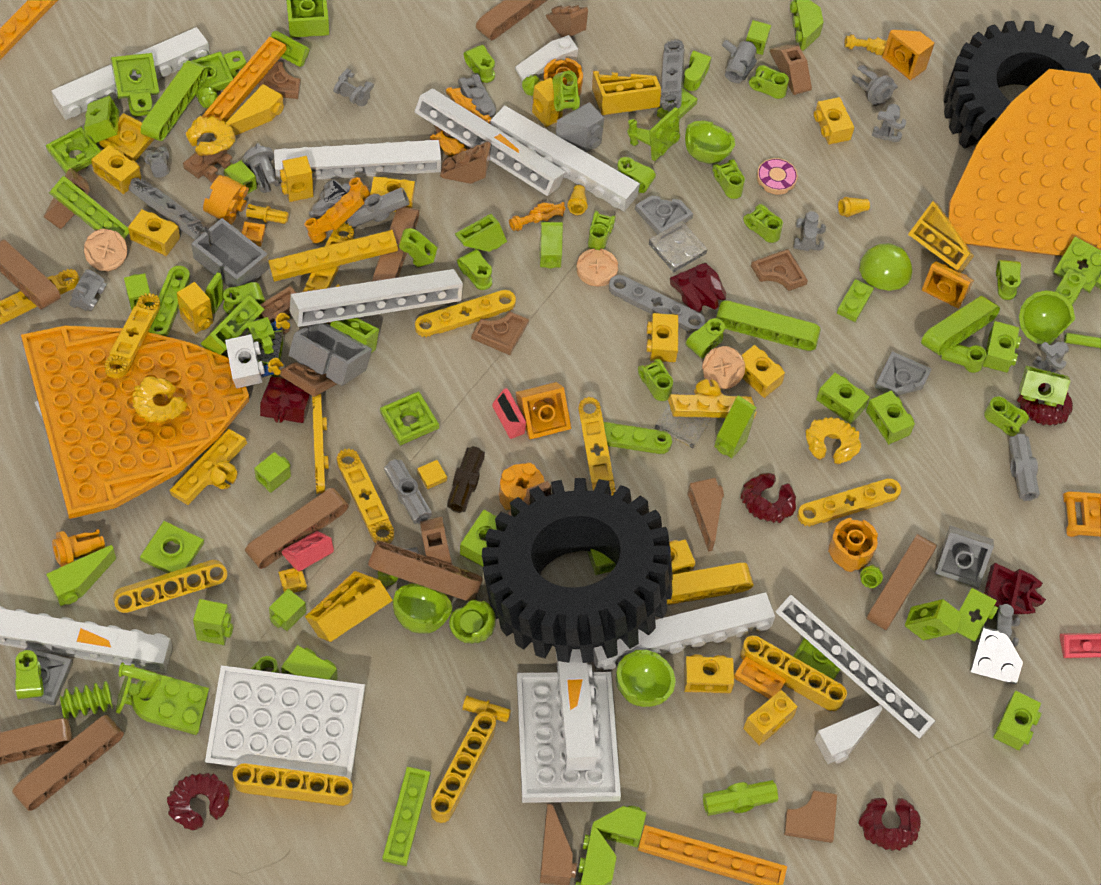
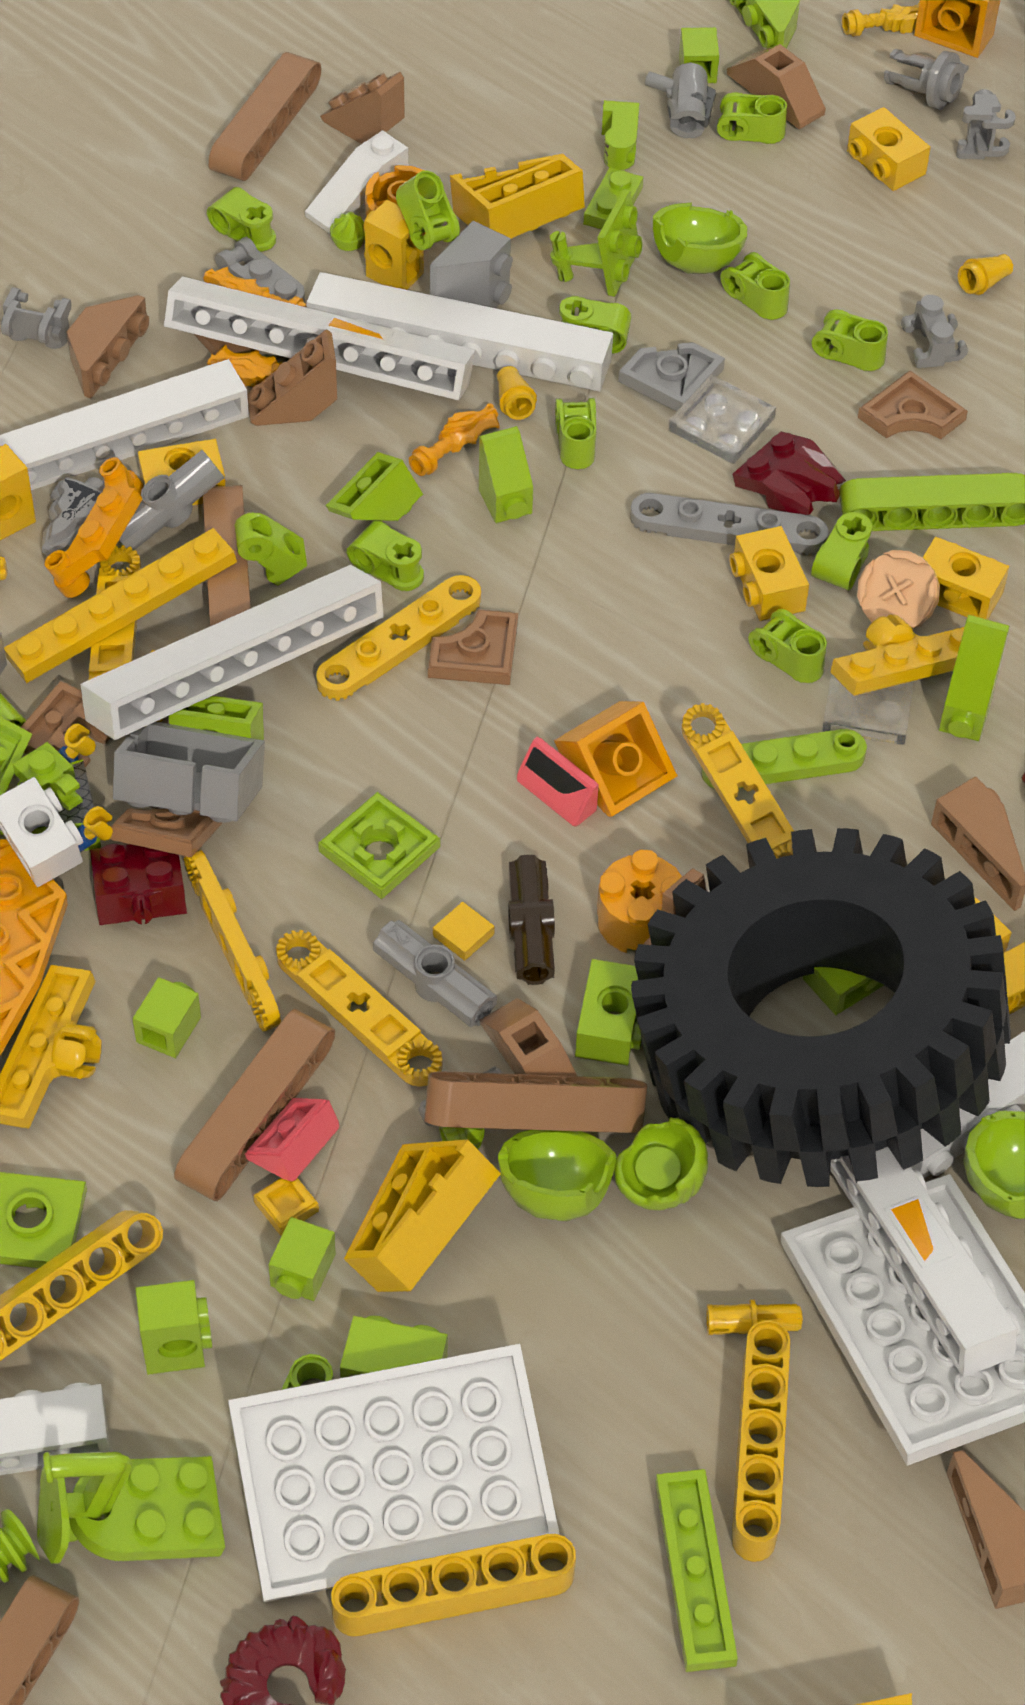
camera: 15 degrees left, 5 degrees down
(383, 109) = (104, 338): none -> medium nougat slope
(597, 267) = (597, 493): light nougat tile -> none
(672, 84) = (576, 133): light grey piece -> none
(777, 176) = (834, 262): tile -> none

